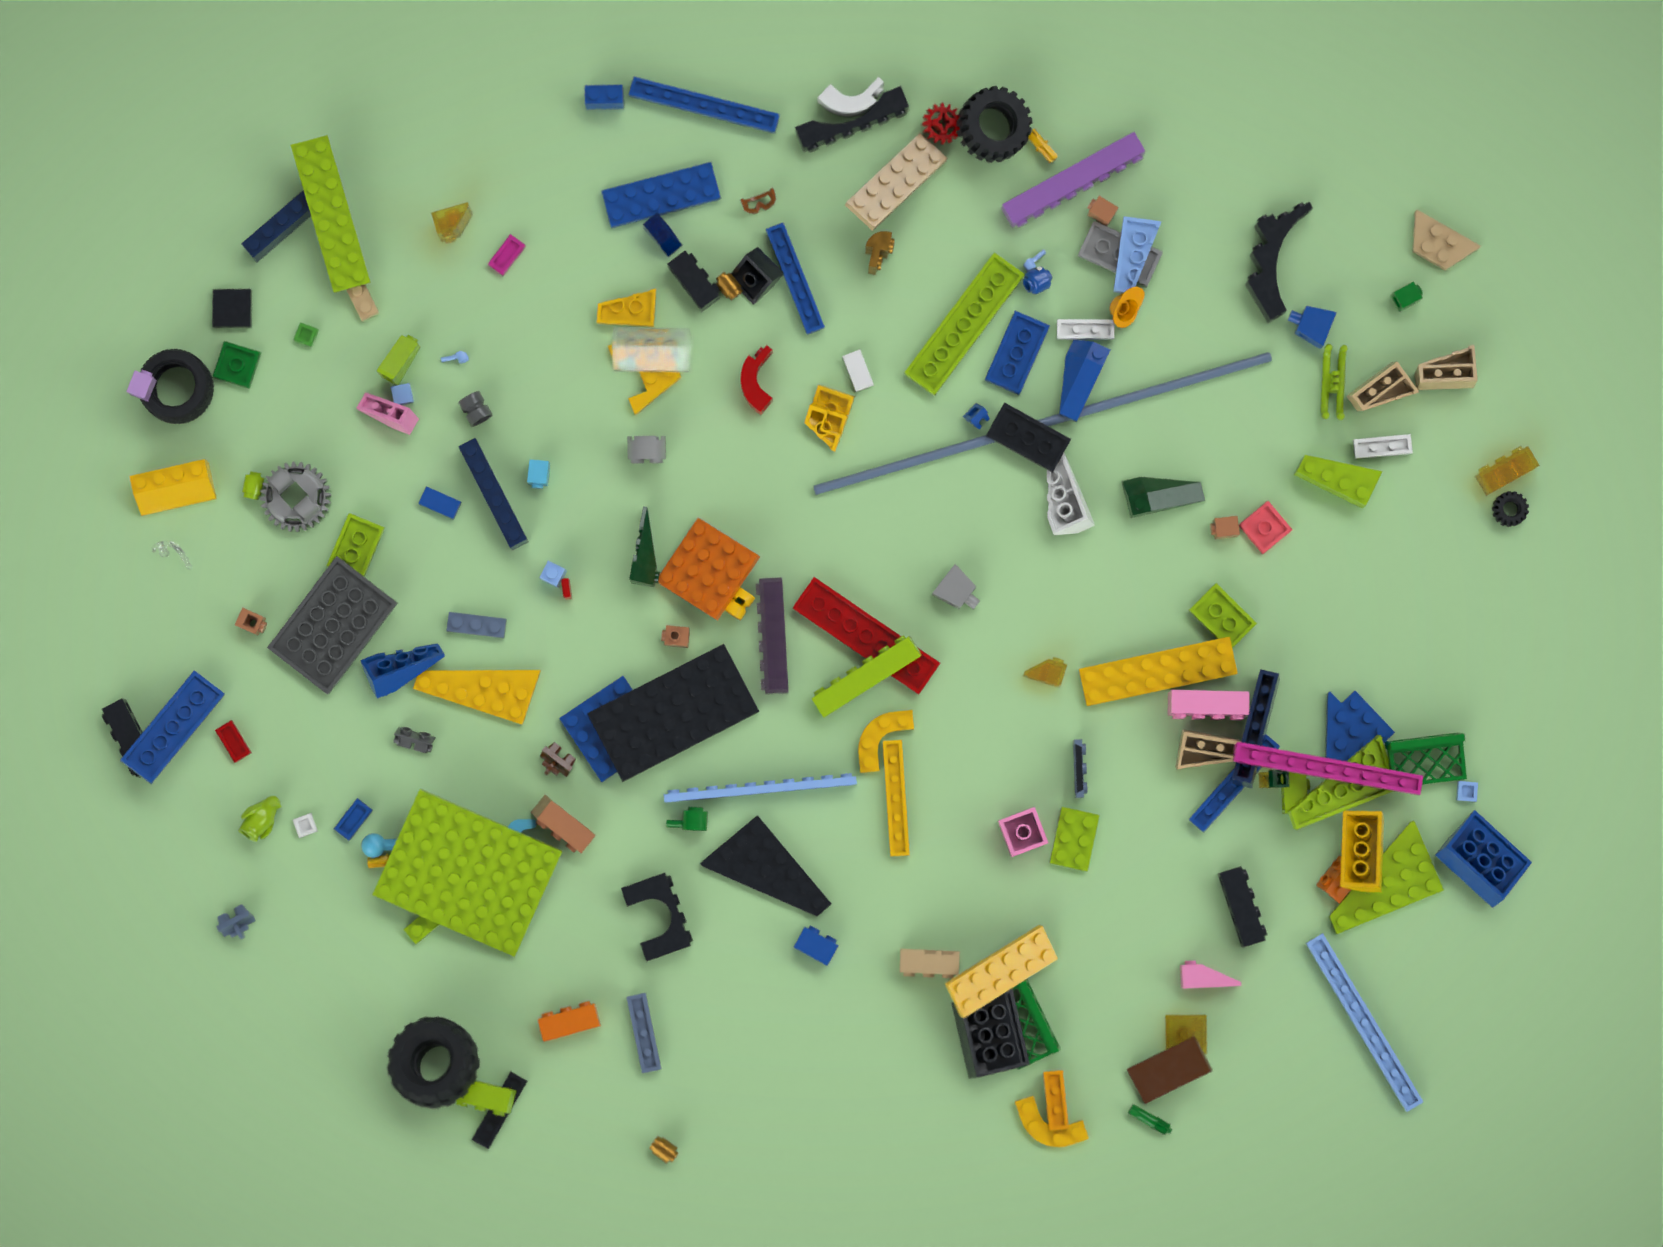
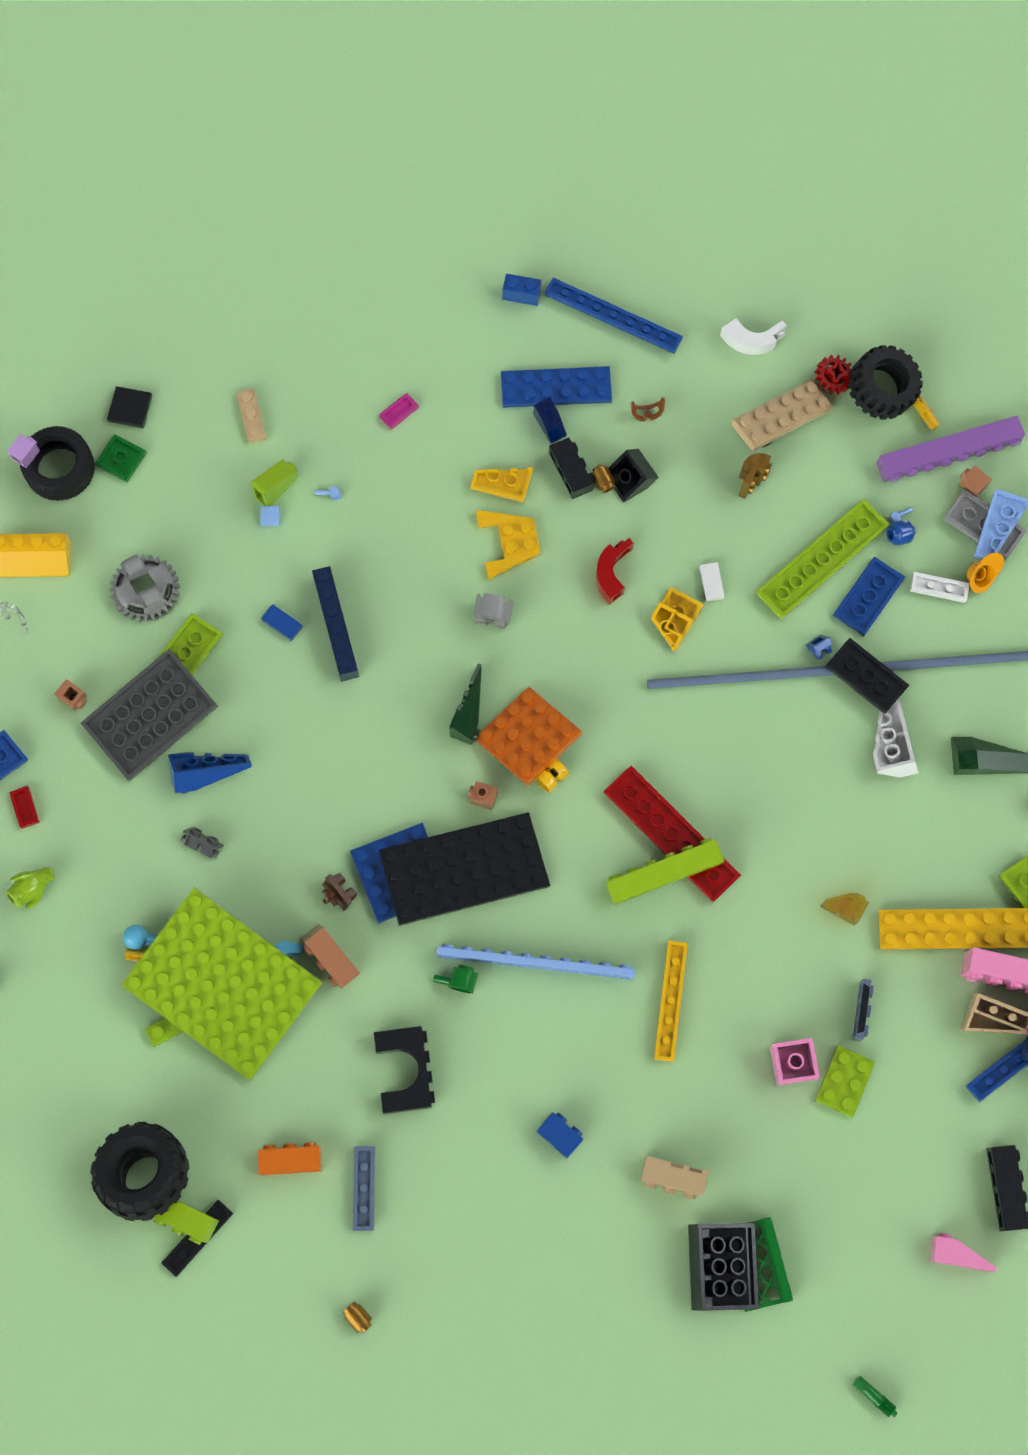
camera: 10 degrees right, 10 degrees down
(252, 485) = (106, 569): lime brick -> none
(277, 227) = (206, 335): dark blue brick -> none
(305, 825) = (73, 904): white tile -> none
(306, 334) = (192, 444): bright green tile -> none
(330, 213) = (242, 338): lime plate -> none
(353, 819) = (122, 908): blue tile -> none
(388, 412) = (255, 530): bright pink slope -> none
(452, 221) = (355, 368): clear yellow slope -> none
(474, 407) = (336, 541): dark grey wheel -> none
(476, 625) = (289, 744): sand blue plate -> none
(489, 691) = (289, 811): yellow wing -> none
(538, 473) = (383, 613): medium azure brick -> none
(553, 574) = (375, 710): light blue brick -> none
(566, 588) = (385, 727): red tile -> none
(651, 349) = (517, 519): clear slope -> none
(763, 863) = (522, 1039): black wing -> none
(773, 636) = (579, 815): clear purple brick -> none
(795, 278) = (668, 485): blue plate -> none
(815, 133) = (714, 361): black arch -> none
(875, 732) = (661, 930): yellow plate -> none
(956, 589) = (770, 807): light grey torso -> none
(1001, 971) = (747, 1202): yellow plate -> none
(1040, 1130) = (761, 1388): yellow plate -> none
(1055, 1100) = (779, 1354): light orange plate -> none
(1081, 371) = (928, 626): blue wedge -> none
(1169, 1069) = (906, 1346): reddish brown tile -> none
(1185, 1026) = (929, 1311): clear yellow slope -> none

